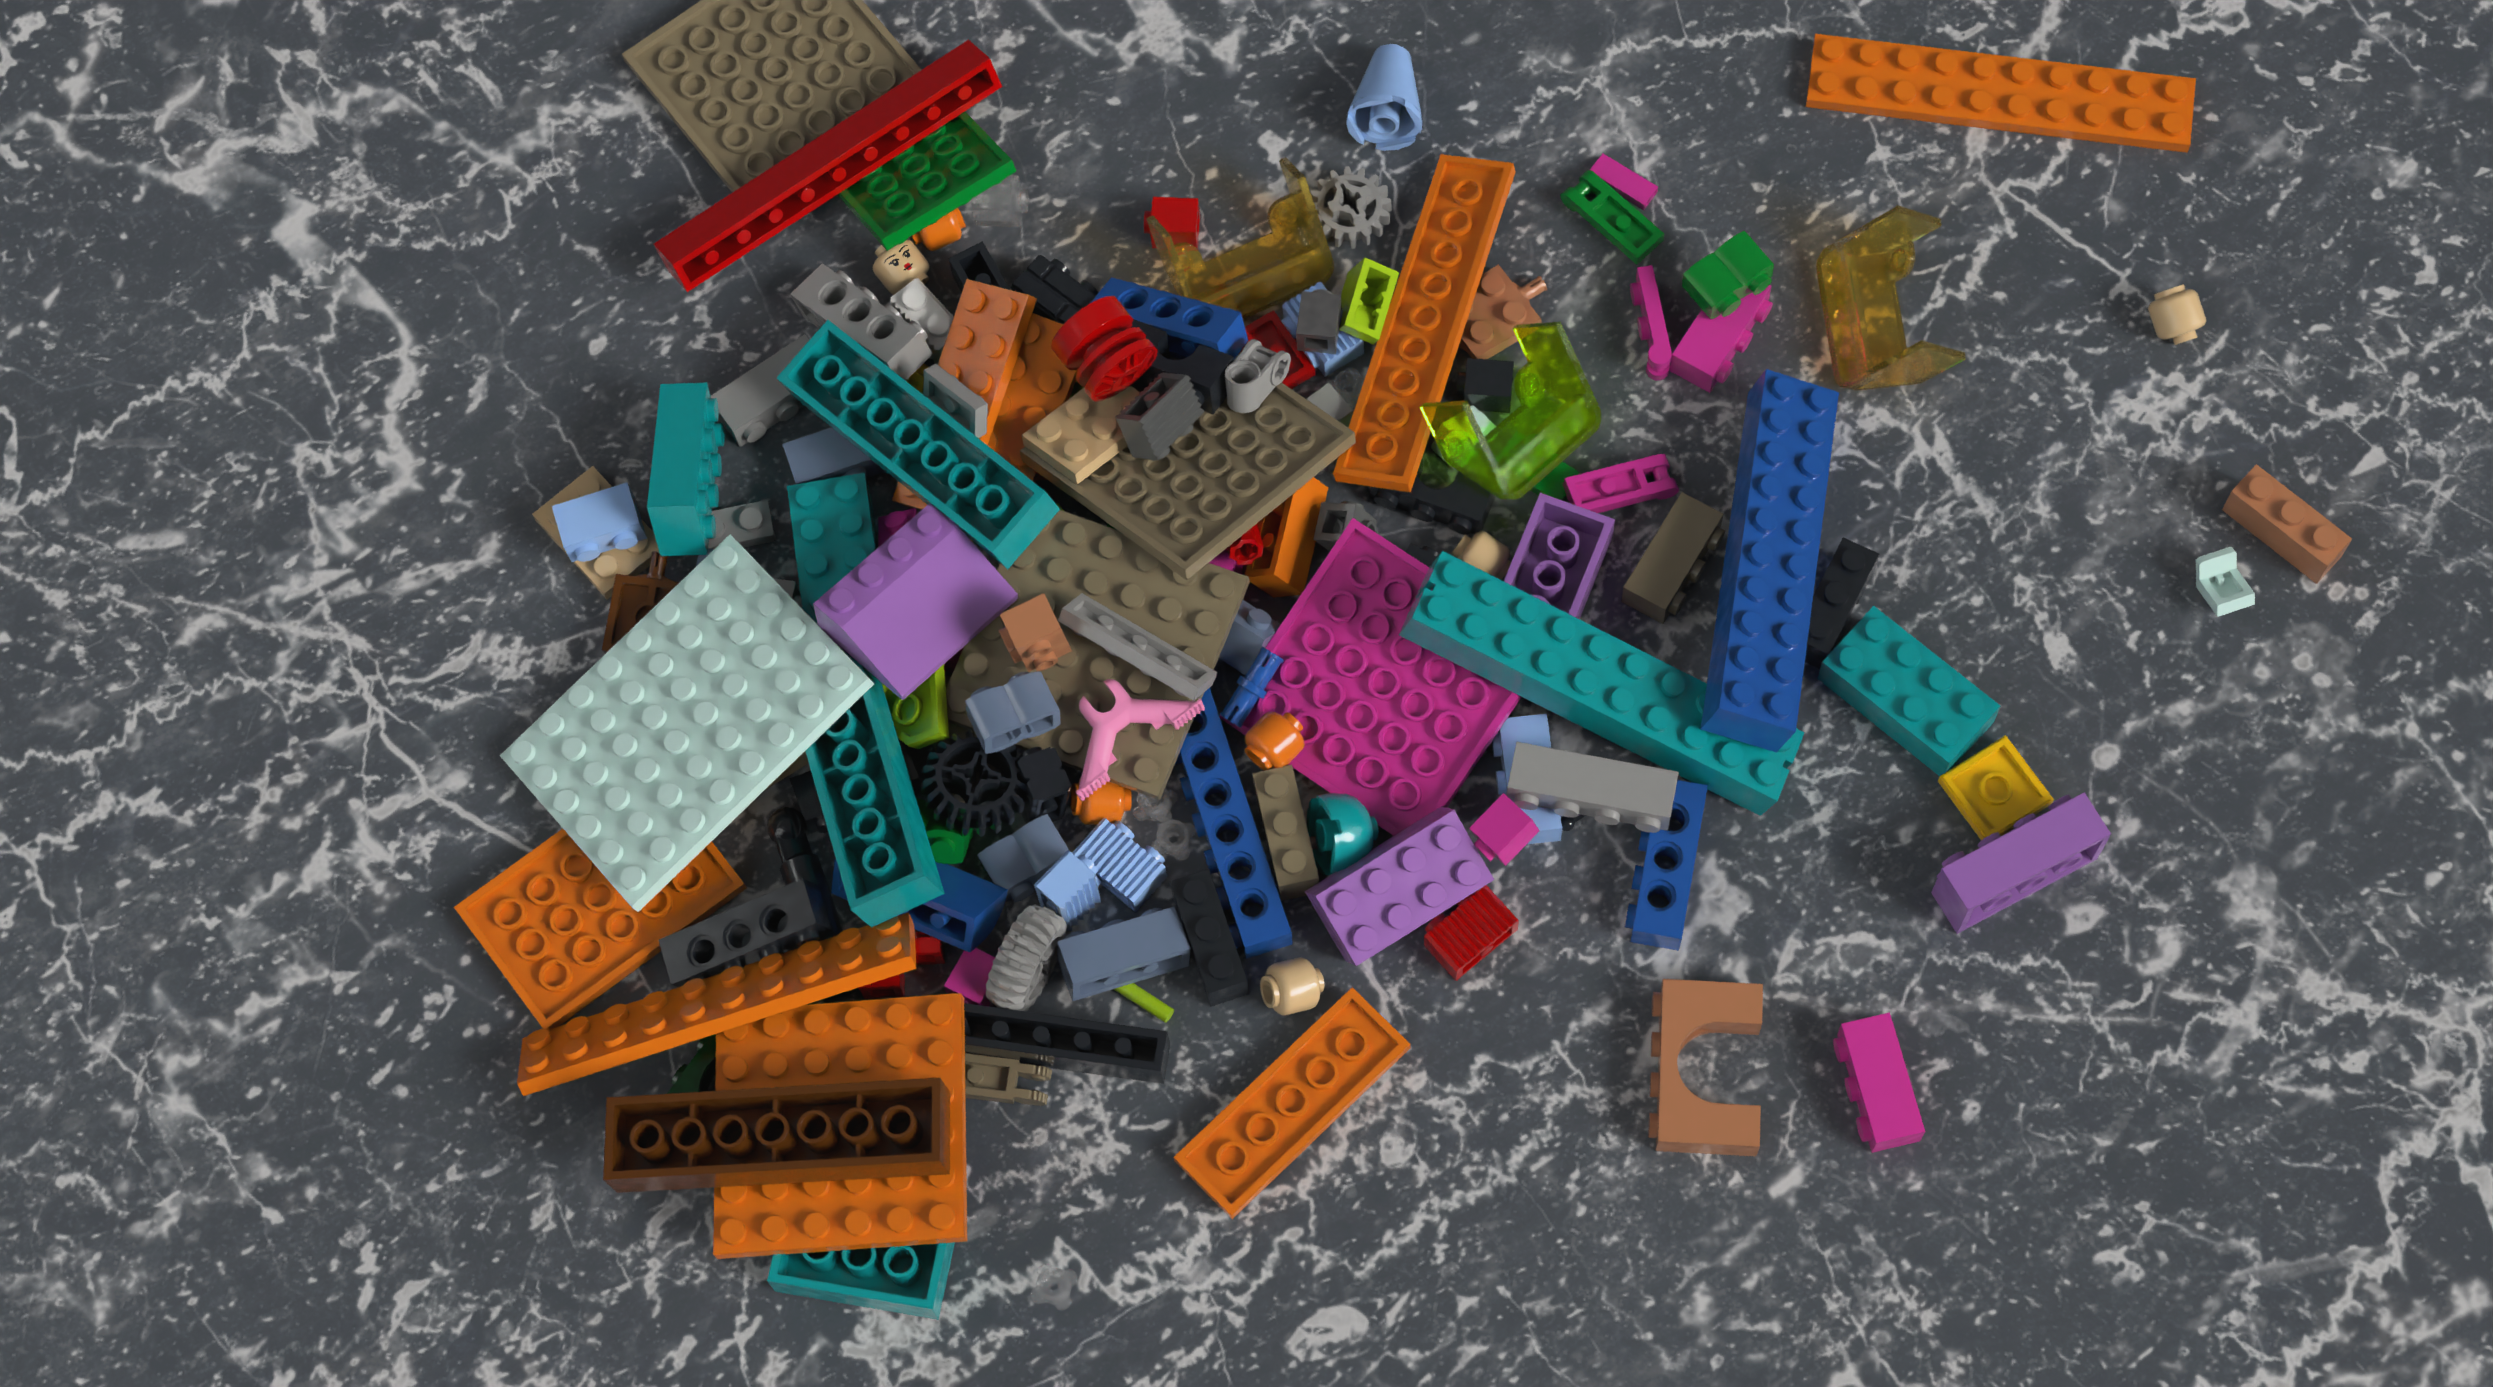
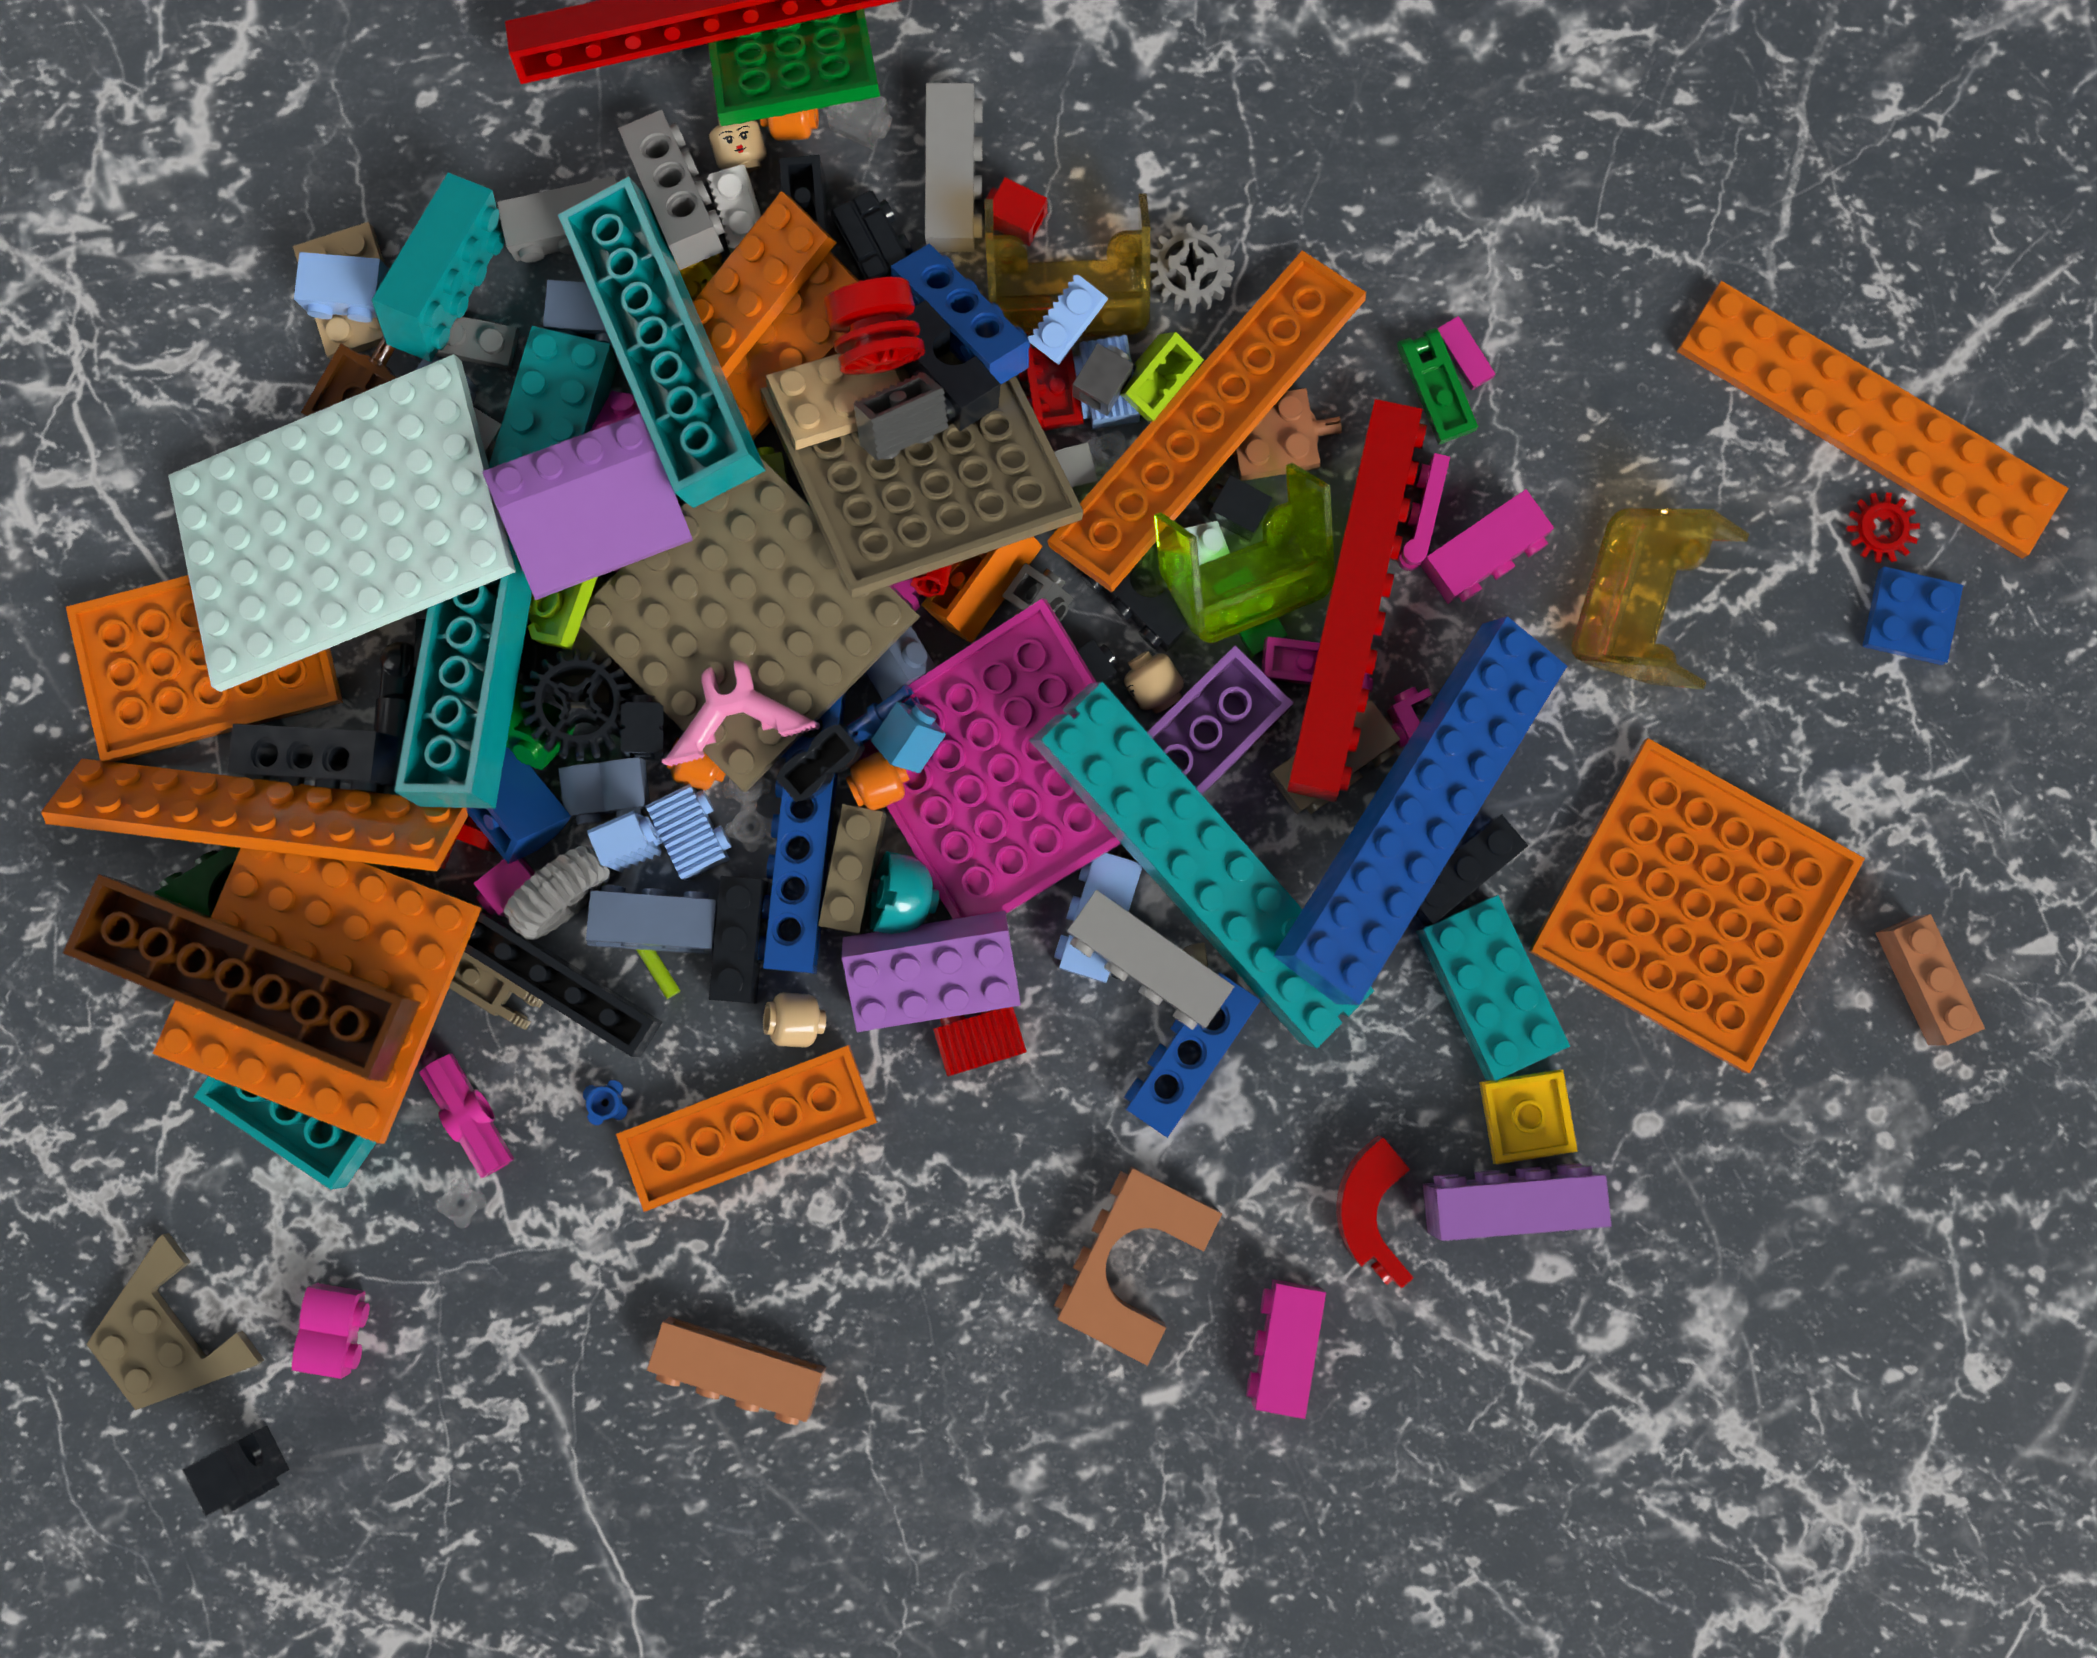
camera: 20 degrees right, 15 degrees up
(956, 399) = (712, 308): light grey plate -> none
(1012, 711) = (635, 654): sand blue brick -> none
(1026, 1202) = (466, 1115): none -> dark pink piece
(1034, 634) = (684, 590): nougat brick -> none
(1100, 210) = (950, 167): none -> light grey brick
(1137, 647) = (779, 642): light grey plate -> none
(1149, 1126) = (594, 1097): none -> blue plate
(1212, 748) = (813, 771): none -> black brick
(1254, 376) = (1018, 405): light grey piece -> none
(1265, 285) = (1067, 319): none -> light blue brick
(1287, 685) = (908, 736): none -> dark azure brick
(1383, 1322) = (737, 1370): none -> nougat brick
(1386, 101) = (1274, 172): light blue cone -> none
(1503, 830) = (1047, 965): dark pink brick -> none
(1628, 418) = (1355, 602): none -> red brick
(1715, 491) = (1403, 715): none -> dark pink bracket
(1728, 275) = (1517, 503): green brick -> none
(1886, 939) = (1358, 1198): none -> red arch
(2048, 163) = (1881, 511): none -> red gear
(2053, 550) = (1696, 905): none -> orange plate
(2117, 235) = (1912, 615): none -> blue plate
(2177, 314) = (1930, 723): tan head -> none
(2222, 582) = (1839, 1011): light aqua bracket -> none

